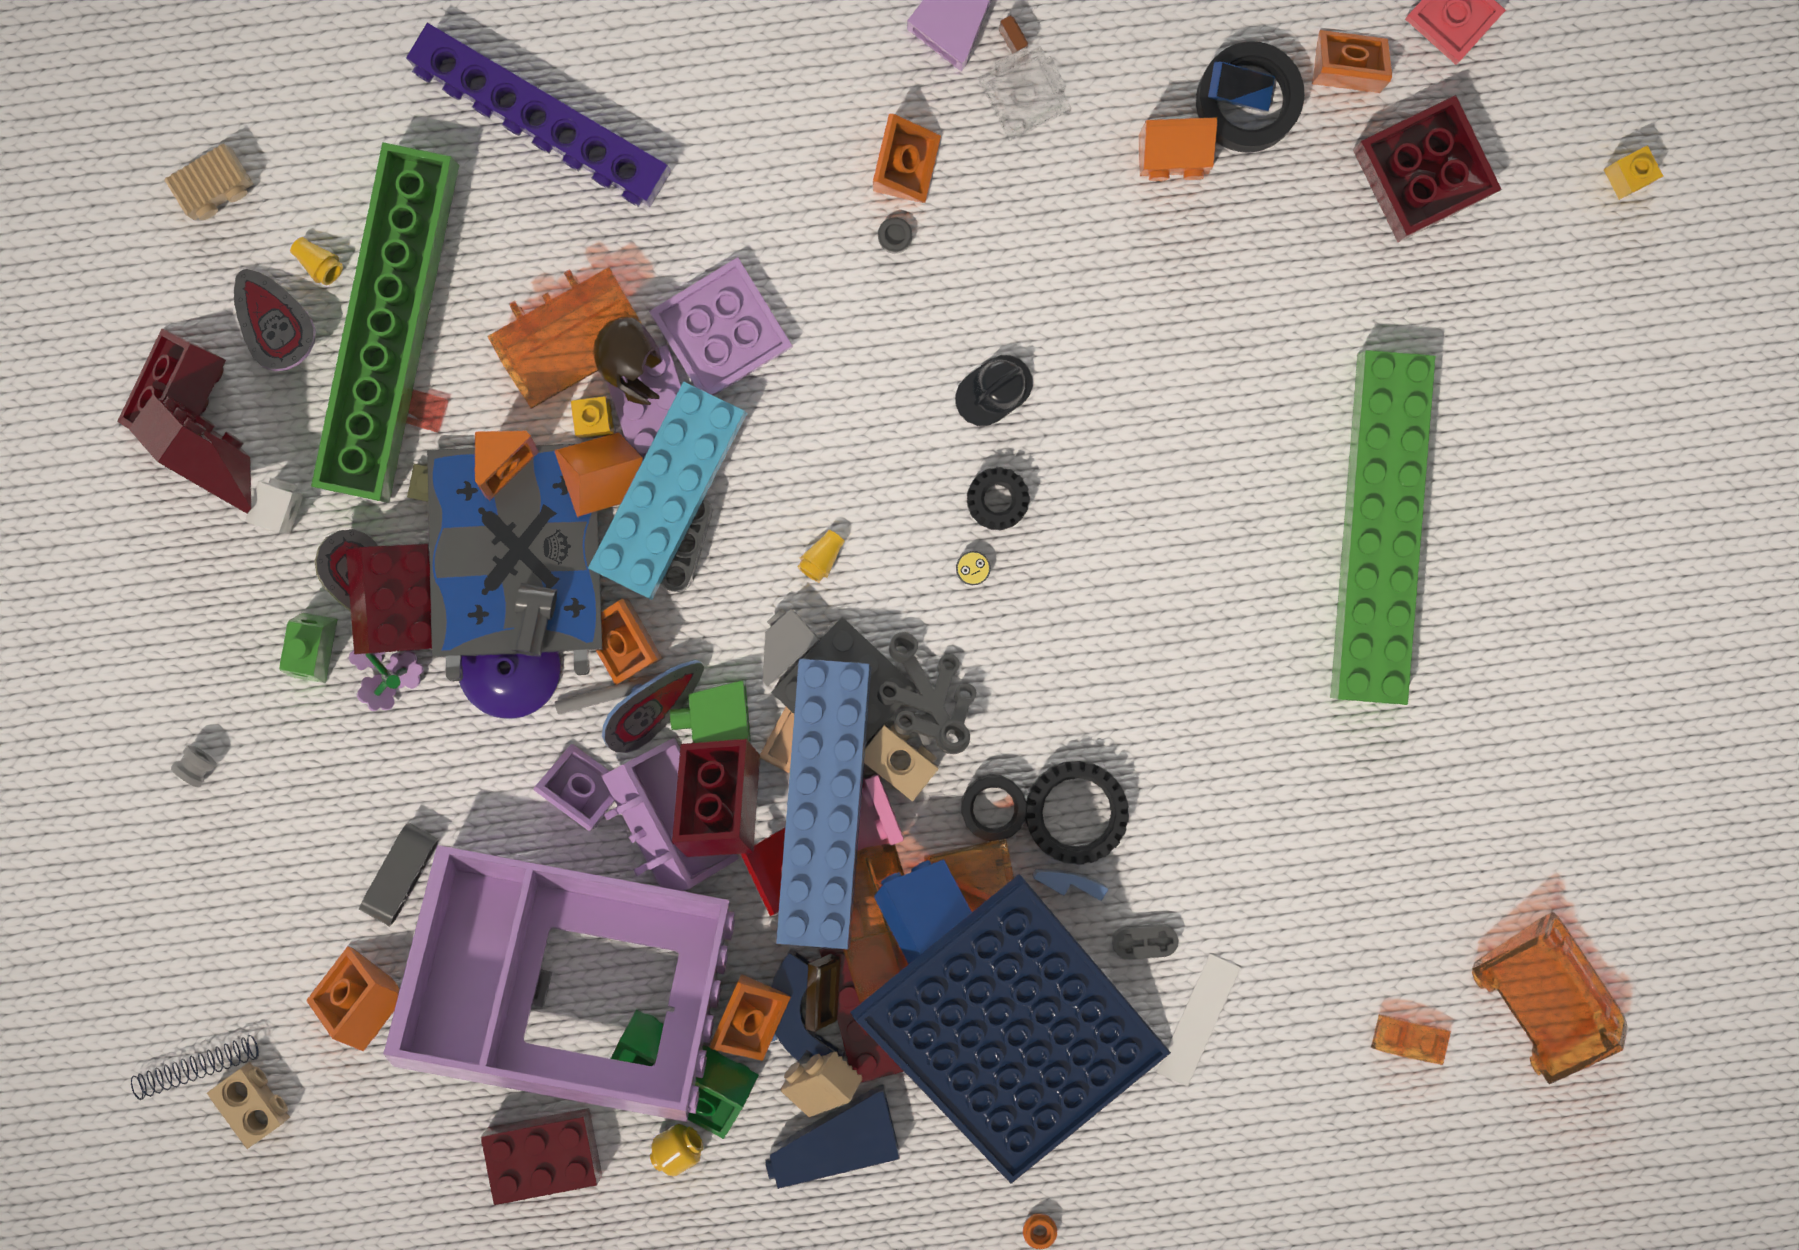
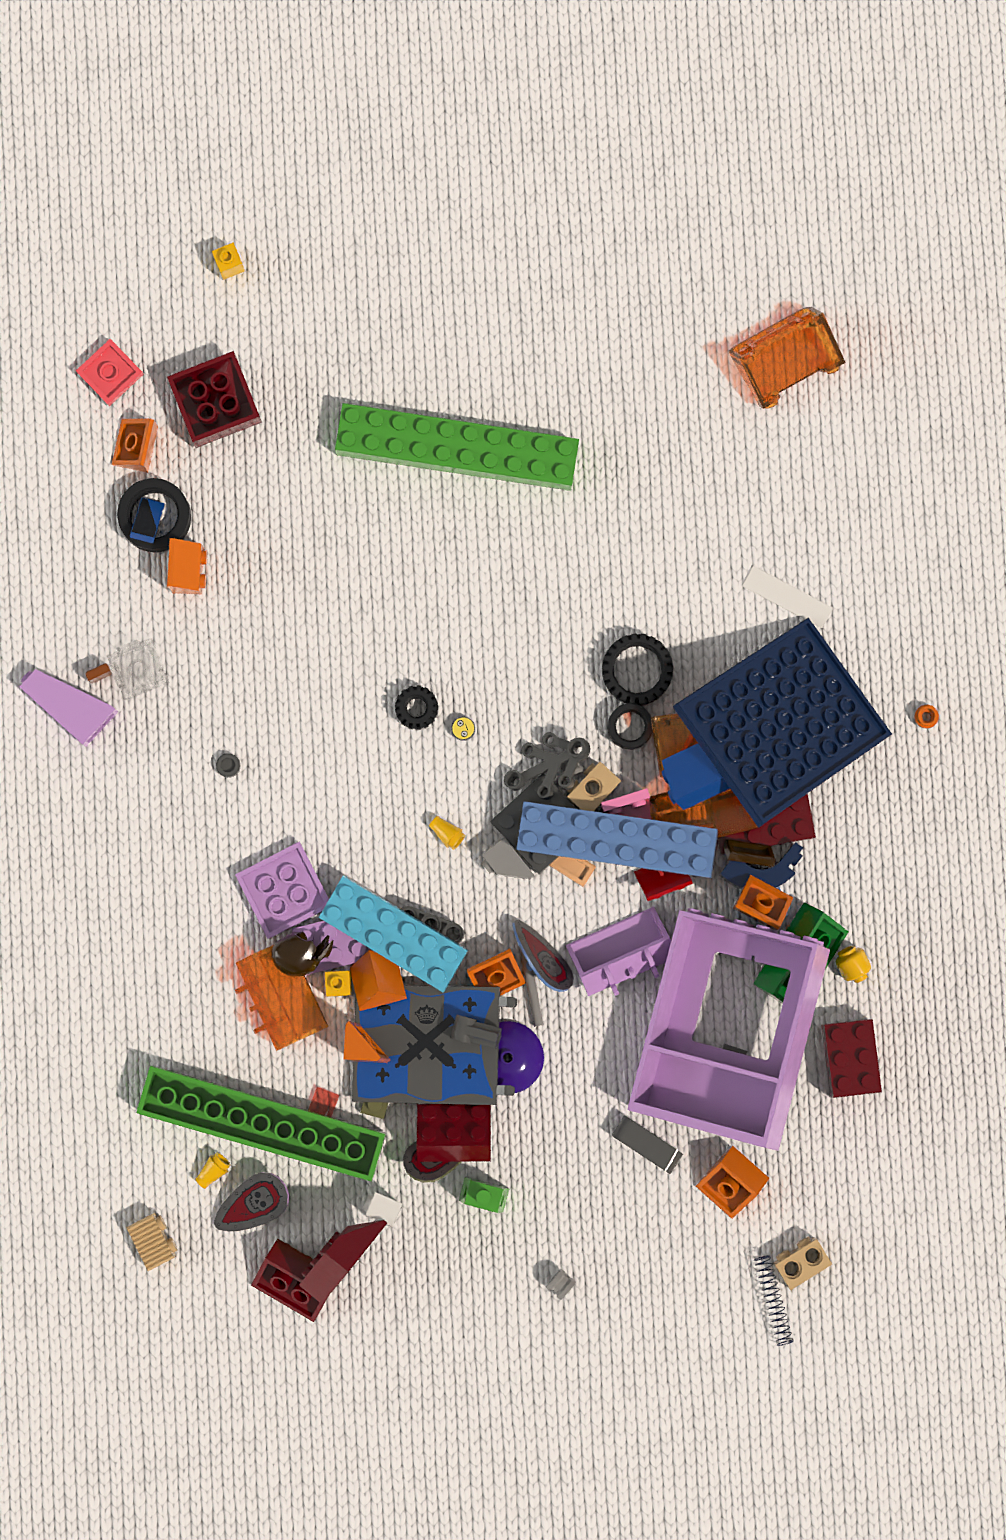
camera: 80 degrees left, 5 degrees down
(380, 689) = (506, 1132): lavender plant -> none
(436, 46) = (69, 1072): dark purple brick -> none
(577, 787) = (594, 1013): lavender slope -> none
(715, 714) = (552, 913): bright green torso -> none
(716, 798) = (608, 914): dark red brick -> none
(820, 1083) = (811, 858): tan brick -> none
(840, 1142) = (855, 850): dark blue slope -> none
(905, 160) = (177, 753): orange slope -> none
(994, 390) = (341, 705): black piece -> none
(1062, 879) = (684, 682): medium blue slope -> none
(1145, 950) = (724, 630): dark grey beam -> none
(1410, 1039) = (809, 453): clear orange slope -> none

